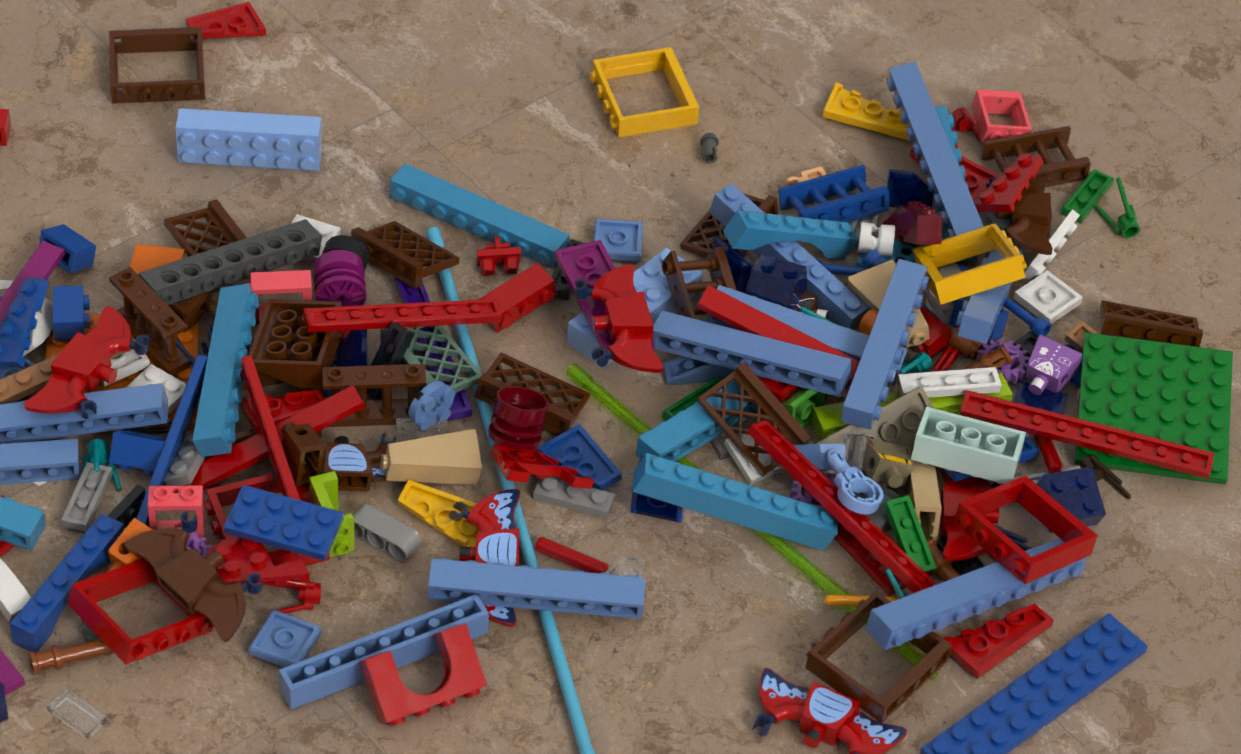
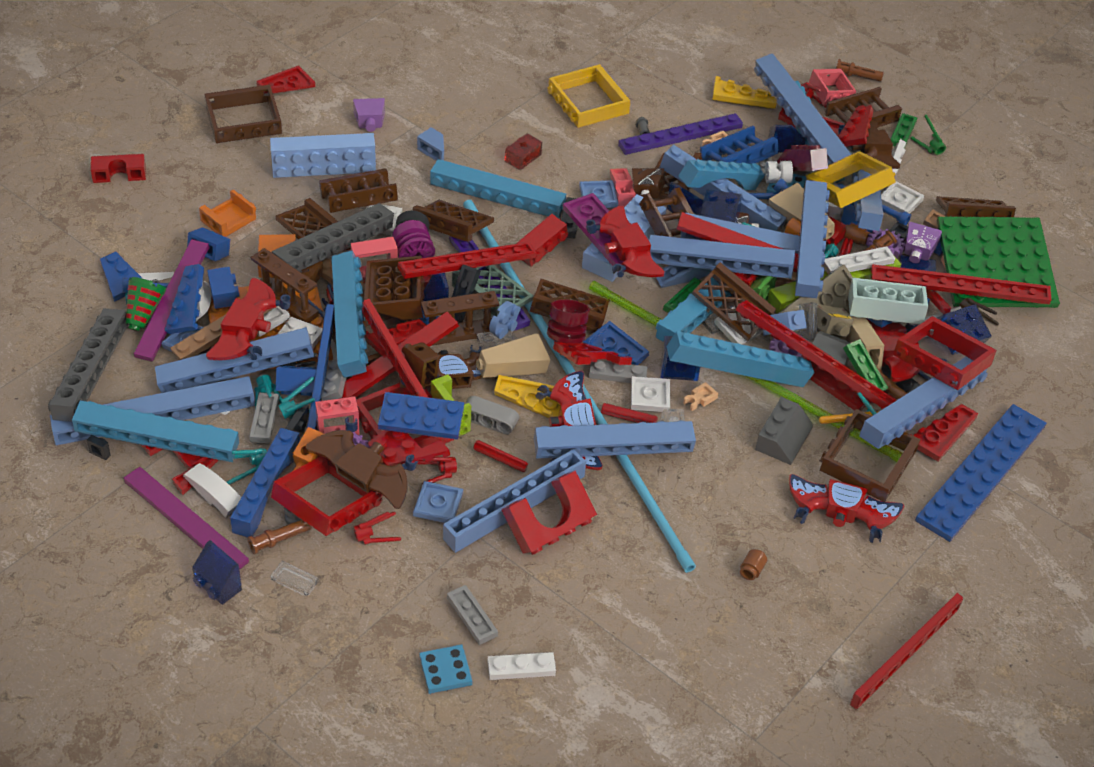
camera: 10 degrees left, 0 degrees up
(63, 547) = (255, 456): none -> teal plant
(105, 210) = (229, 215): none -> orange panel
(121, 488) = (289, 408): none -> teal plant
(179, 664) = (364, 530): none -> red plant
(285, 196) = (358, 190): none -> reddish brown fence
(331, 84) = (369, 113): none -> medium lavender torso
(384, 589) = (500, 455): none -> red axle
(405, 139) = (431, 143): none -> medium blue slope
(498, 254) = (518, 213): red hips -> none
(529, 165) = (523, 151): none -> clear red brick
(607, 532) = (650, 394): none -> white plate
(654, 231) = (623, 185): none -> coral slope
(677, 543) = (701, 395): none -> light nougat plate
(689, 232) = (648, 181): none -> reddish brown torso
(761, 163) = (680, 134): none -> dark purple plate
(775, 608) = (784, 431): none -> dark grey slope
(853, 480) = (817, 337): light blue pin -> none
(1039, 93) = (852, 69): none -> dark orange pin

